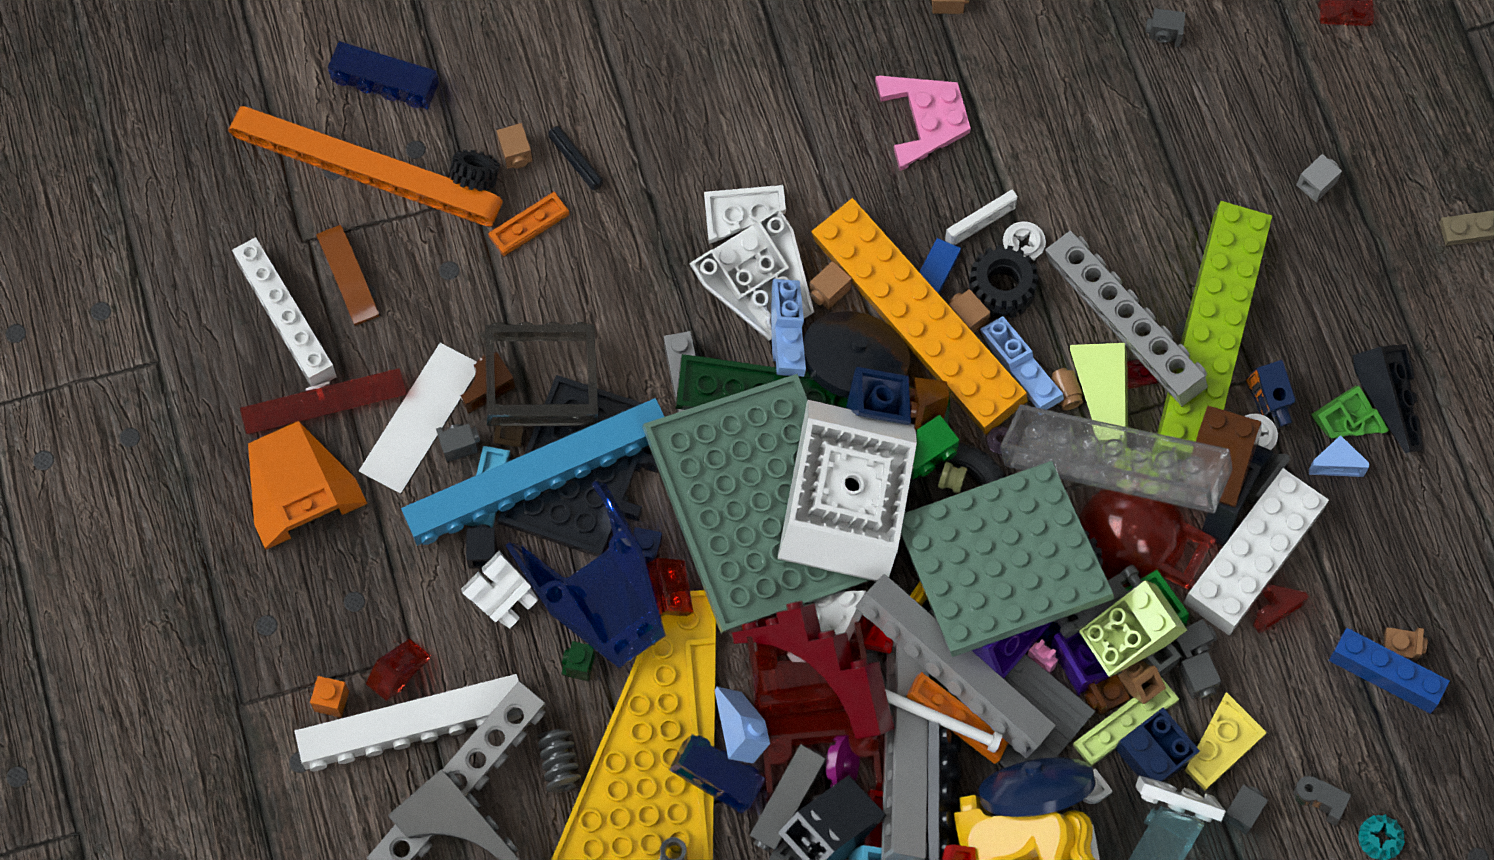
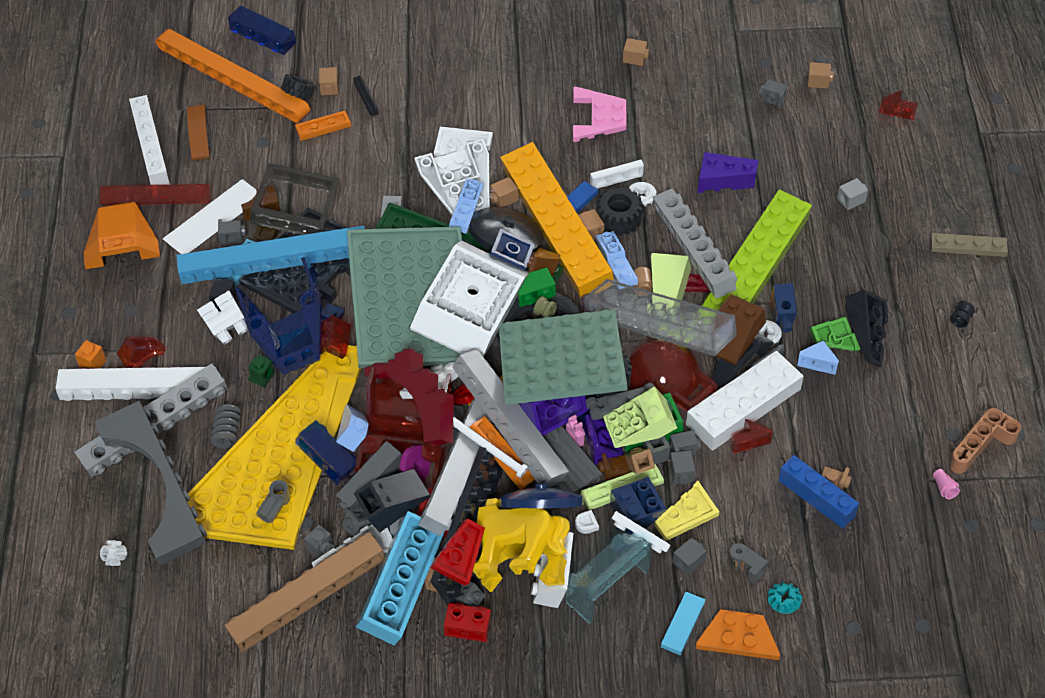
camera: 15 degrees right, 15 degrees down
(1135, 180) = (726, 172): none -> dark purple wedge

